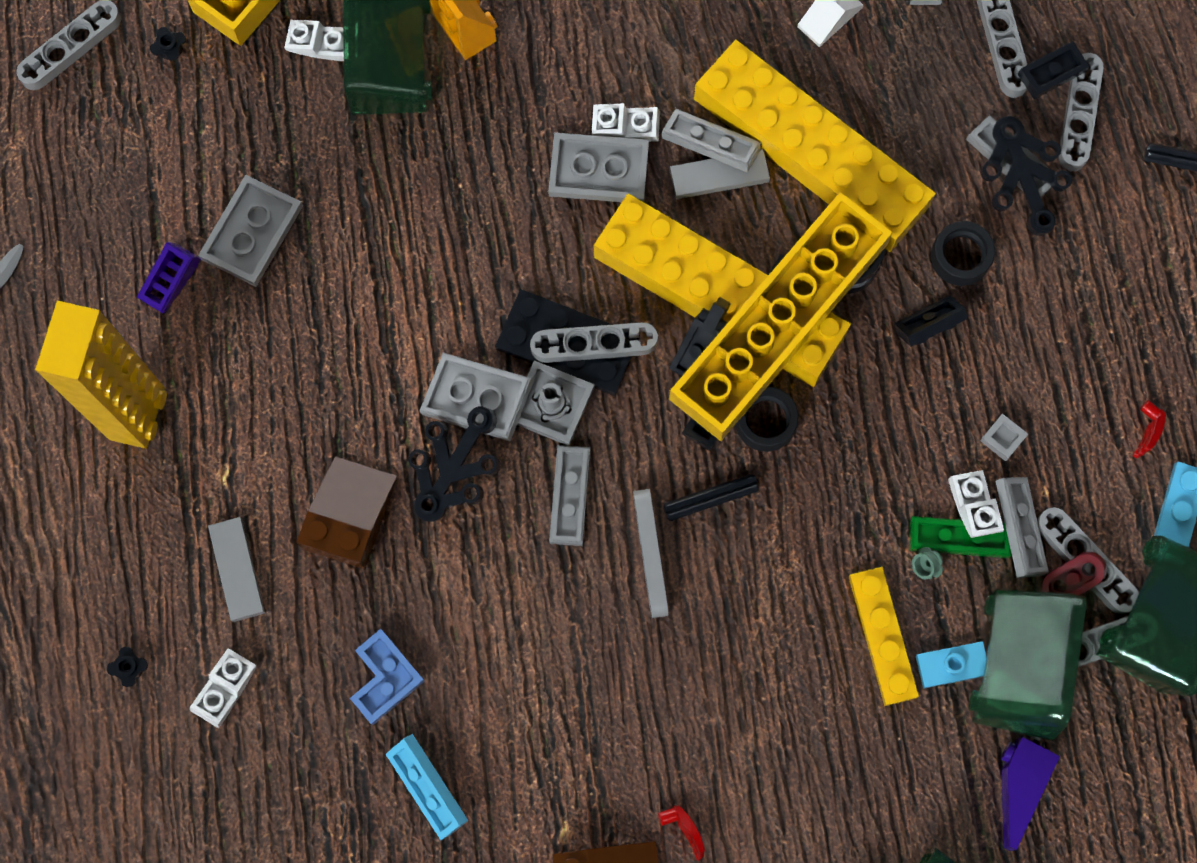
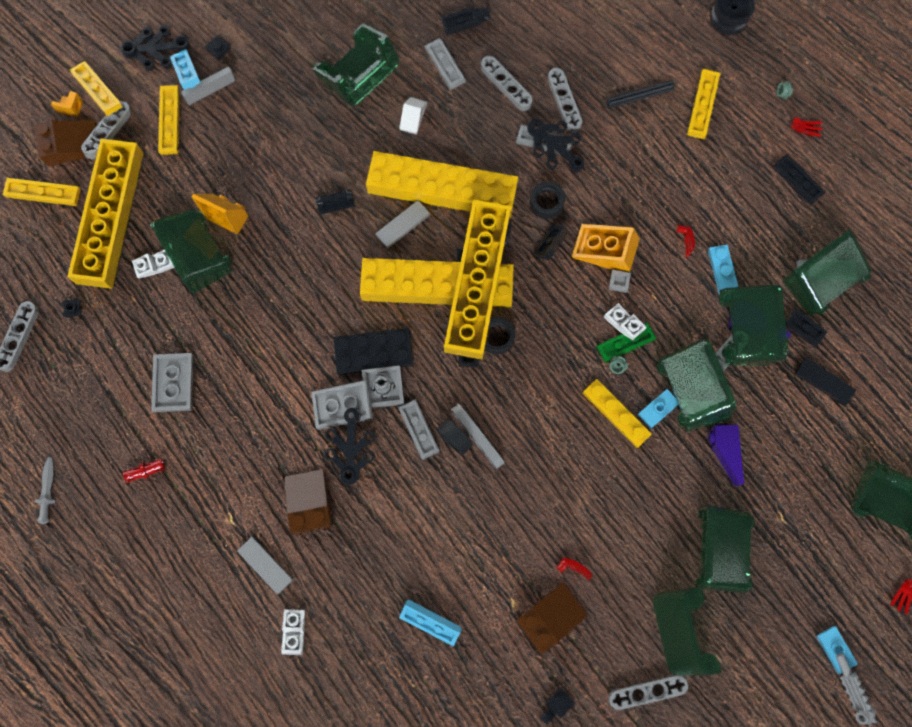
camera: 30 degrees left, 0 degrees up
(101, 375) = (135, 503): yellow brick -> none
(137, 667) = (231, 645): black plate -> none
(145, 337) = (144, 470): none -> red pin
(158, 271) = (134, 423): dark purple slope -> none
(392, 681) = (381, 578): medium blue plate -> none
(594, 348) = (386, 341): light grey beam -> none
(598, 167) = (338, 253): light grey plate -> none
(615, 535) = (454, 437): none -> black tyre
(624, 122) = (339, 224): white slope -> none
(636, 87) = (335, 202): none -> black hinge
(700, 335) = (442, 312): black hinge -> none
(711, 140) = (389, 209): light grey tile -> none
(711, 497) = (491, 390): black axle -> none
(1015, 373) = (607, 246): none -> light orange slope
(1022, 527) = (653, 321): light grey tile -> none
(1053, 70) = (540, 85): black plate -> none
(1066, 523) = (693, 324): light grey beam -> none
(1075, 576) = (694, 331): dark red plate -> none

